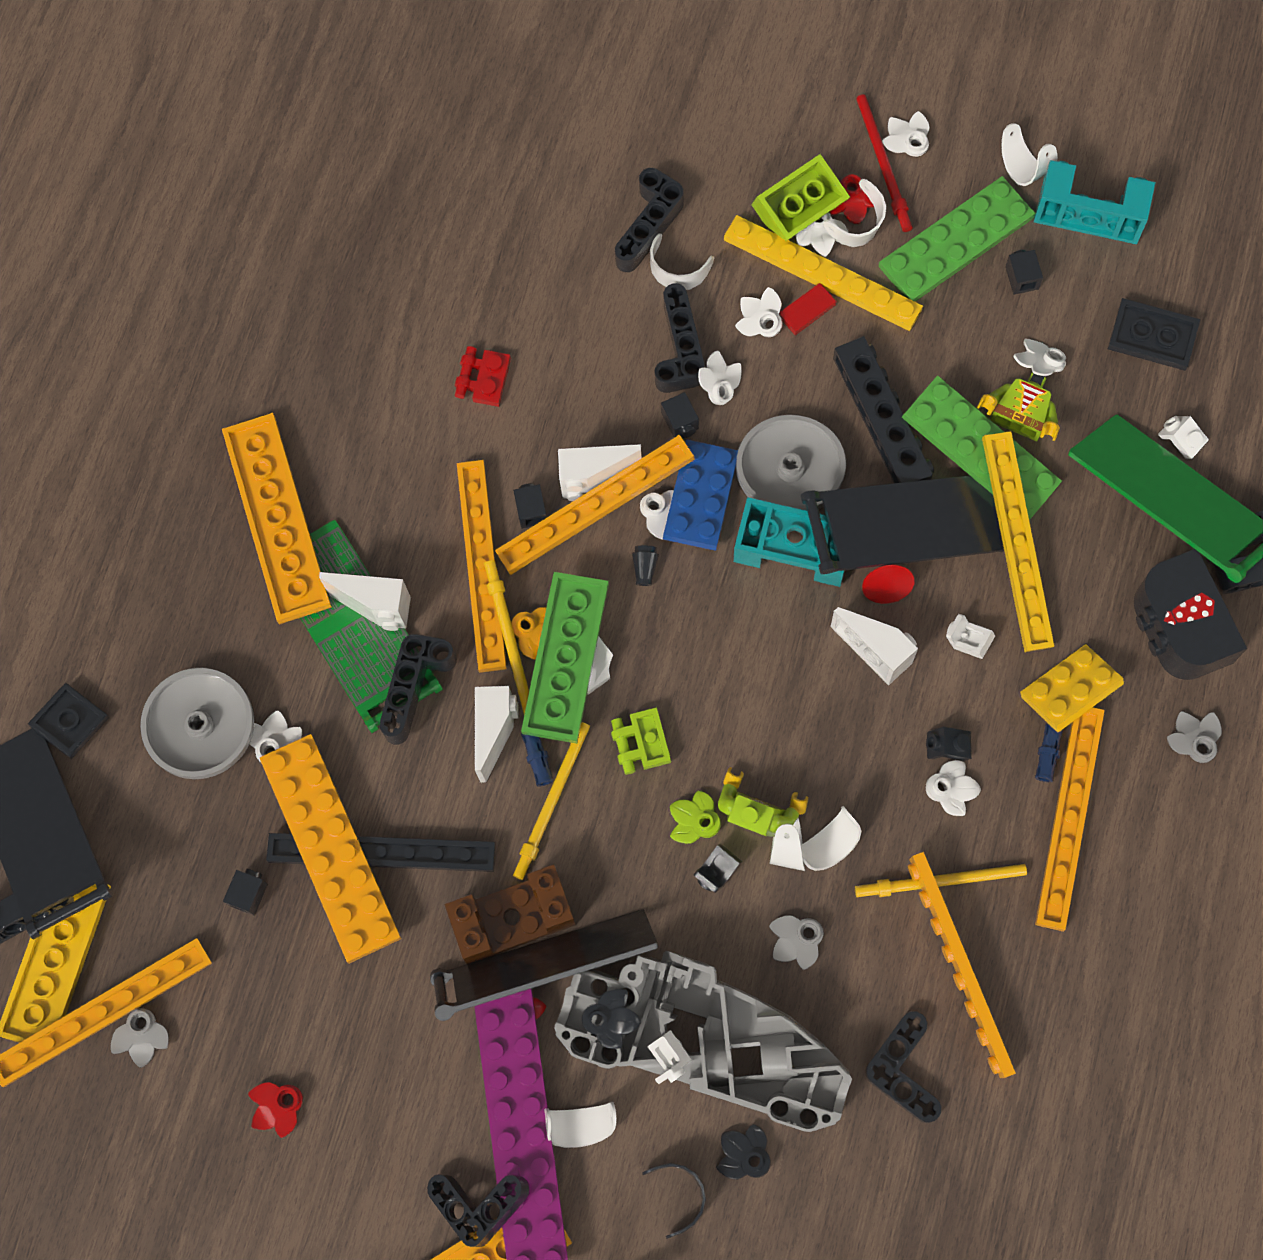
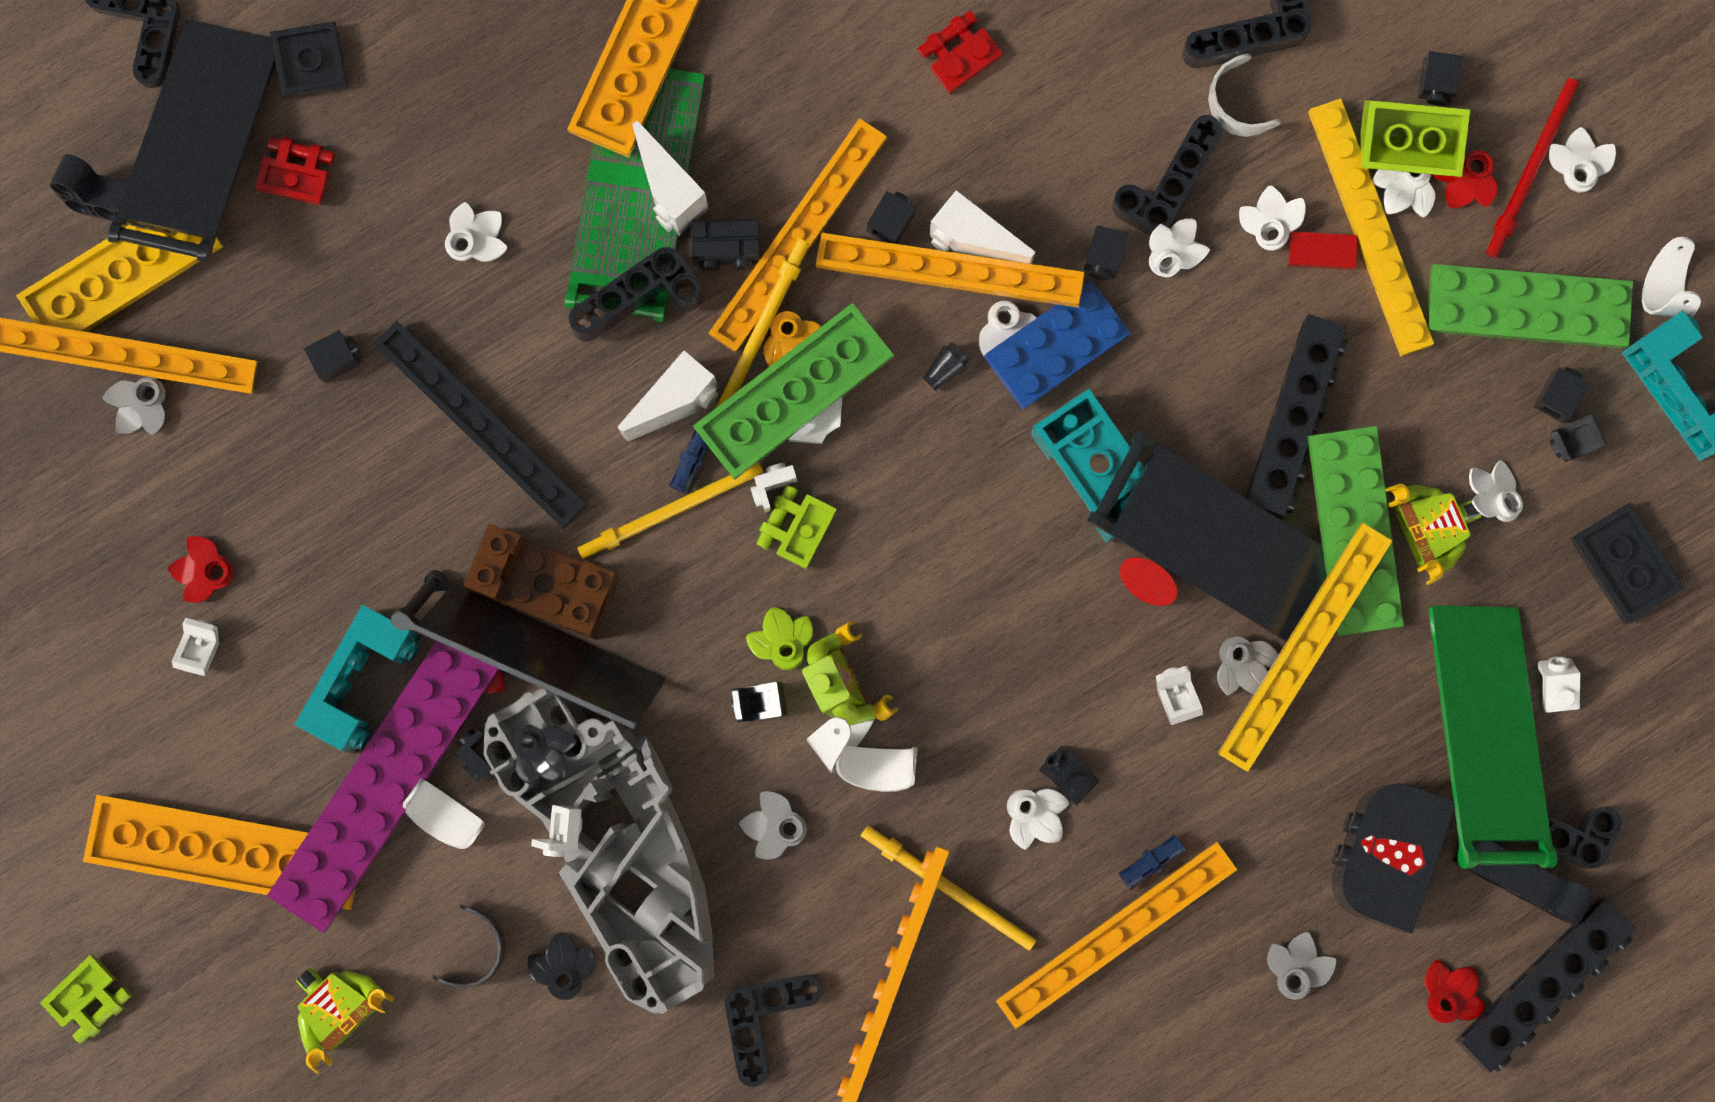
camera: 40 degrees right, 10 degrees up
(123, 804) = (293, 180): none -> red plate
(178, 708) = (410, 135): light grey dish -> none
(316, 1159) = (196, 646): none -> white bracket
(330, 849) = (437, 381): light orange plate -> none
(436, 1041) = (321, 714): none -> teal plate
(440, 606) = (725, 243): none -> black brick
(478, 1216) = (284, 812): black beam -> none
(571, 1070) = (476, 764): none -> black bracket
(600, 722) = (776, 477): none -> white bracket
(783, 155) = (1439, 78): none -> black brick
(788, 458) = (1165, 387): light grey dish -> none
(860, 239) = (1486, 203): white piece -> none
(878, 644) = (1087, 633): white slope -> none
(995, 585) = (1248, 669): none -> light grey plate
(1057, 287) = (1577, 438): none -> black bracket
(1072, 688) = (1227, 823): yellow plate -> none

